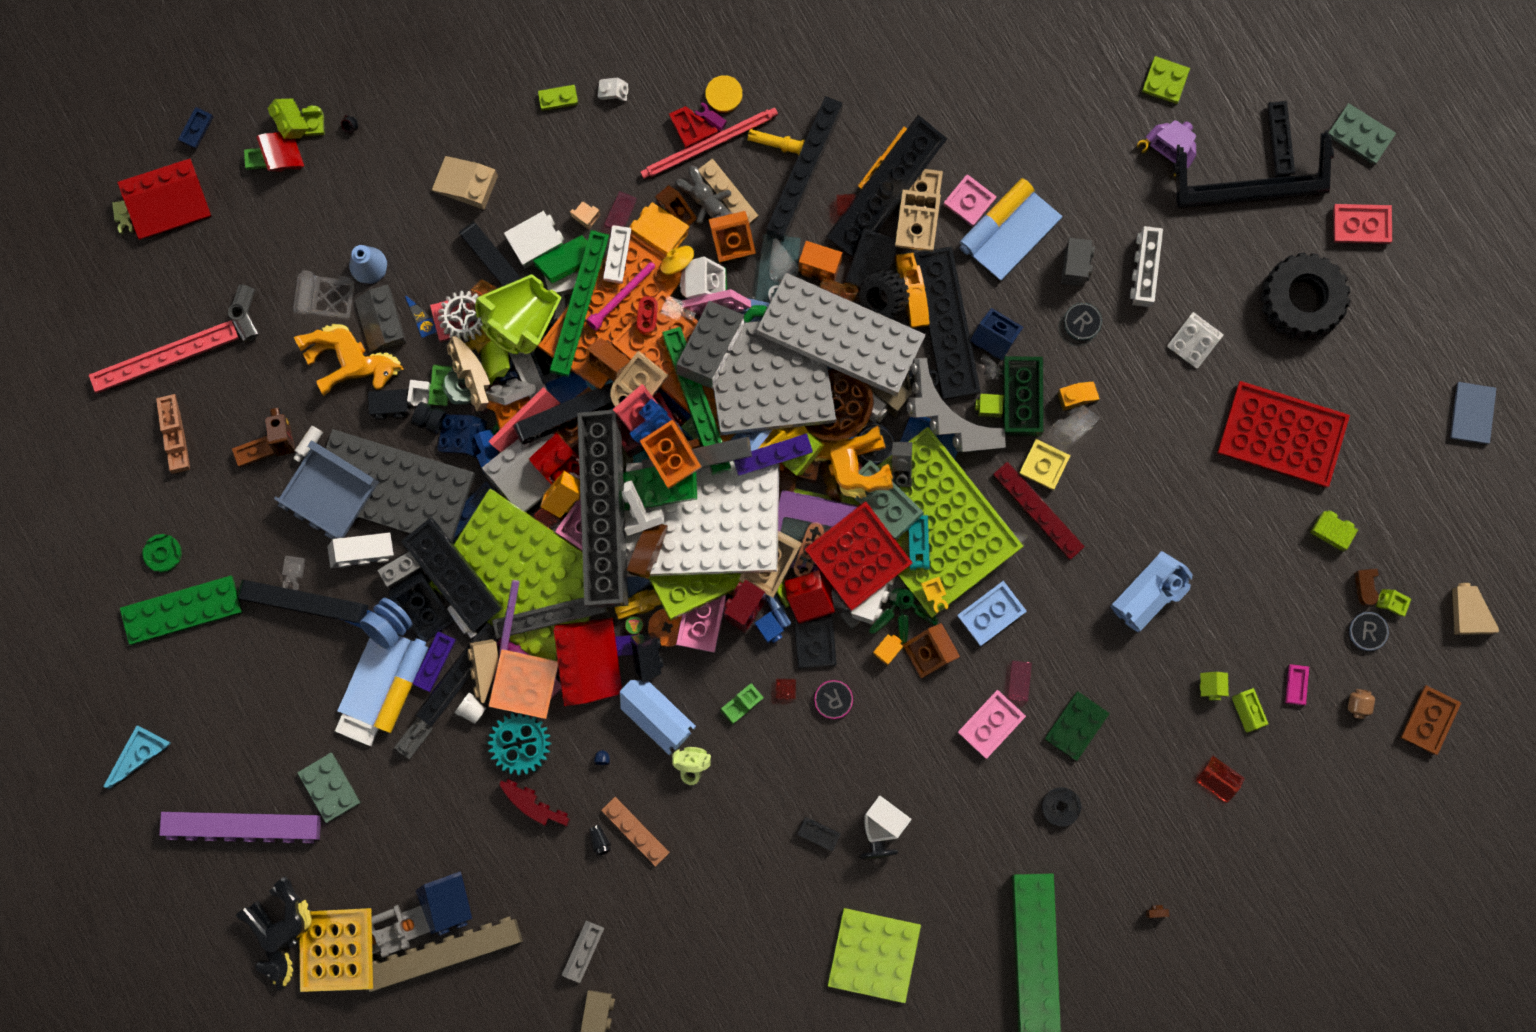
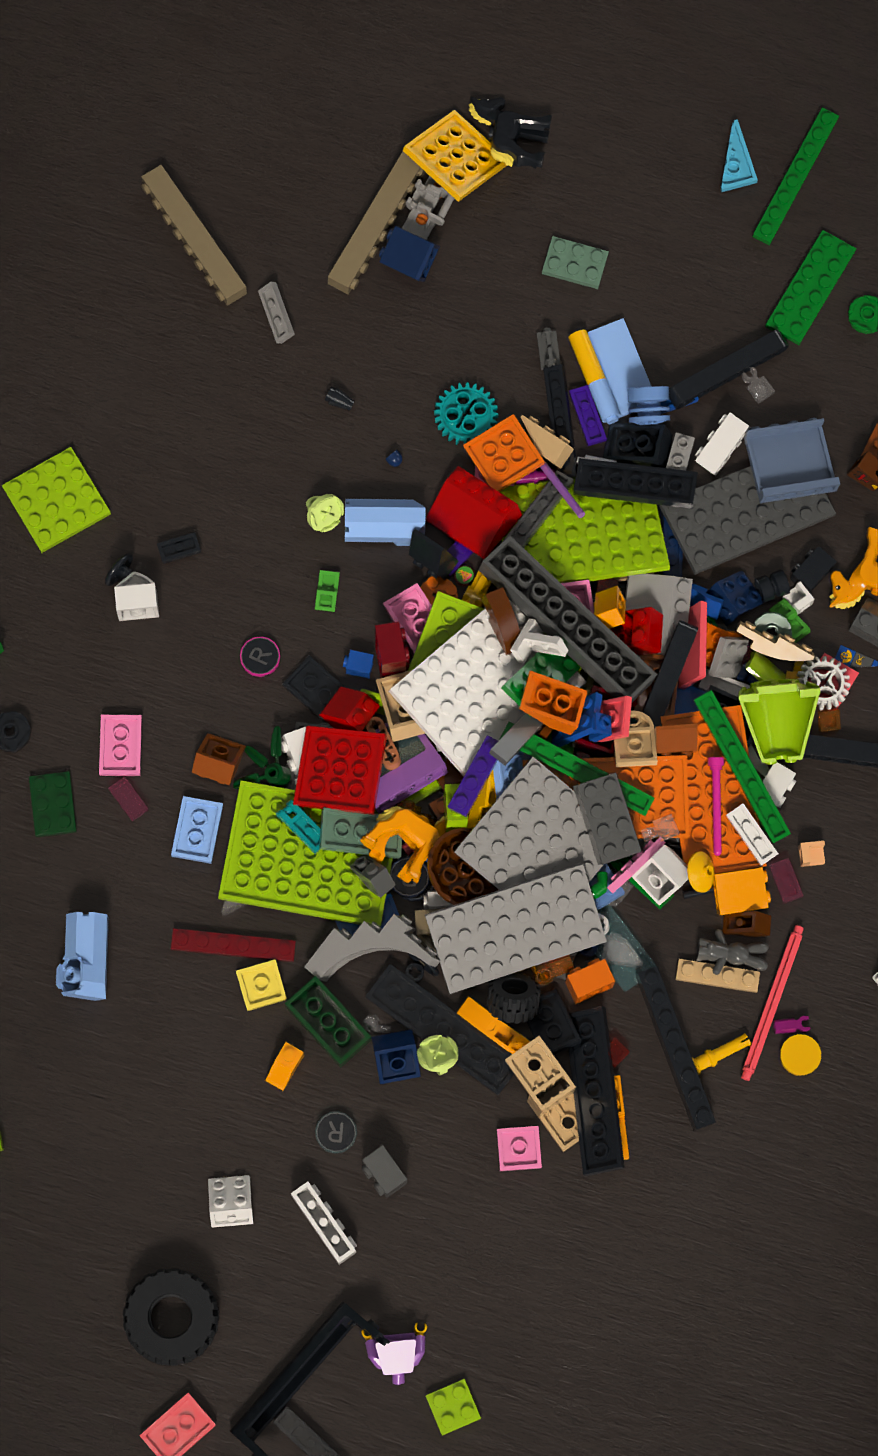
camera: 130 degrees right, 5 degrees down
(105, 704) = (795, 176): none -> green plate
(240, 826) = (611, 179): medium lavender brick -> none
(302, 449) = (844, 490): white cylinder -> none
(357, 729) = (595, 318): white tile -> none
(470, 708) = (526, 405): white piece -> none
(526, 802) = (420, 377): dark red slope -> none
(534, 238) = (830, 796): white brick -> none
(562, 260) = (792, 796): green tile -> none
(635, 831) = (319, 430): nougat plate -> none
(647, 316) = (680, 800): red plate -> none
(691, 127) = (799, 1001): red wing -> none
(732, 236) = (678, 937): orange brick -> none
(778, 610) = (362, 682): medium blue axle -> none
(786, 689) = (304, 632): clear red plate -> none
(888, 649) = (252, 729): light orange brick -> none
(935, 591) = (255, 799): yellow plate -> none
(969, 305) = (437, 1054): none -> yellowish green tile
(989, 405) = (348, 991): lime brick -> none
(1010, 230) = (463, 1154): light blue door -> none
(1075, 426) = (264, 1035): clear slope -> none
(1283, 434) = (89, 1186): red plate -> none

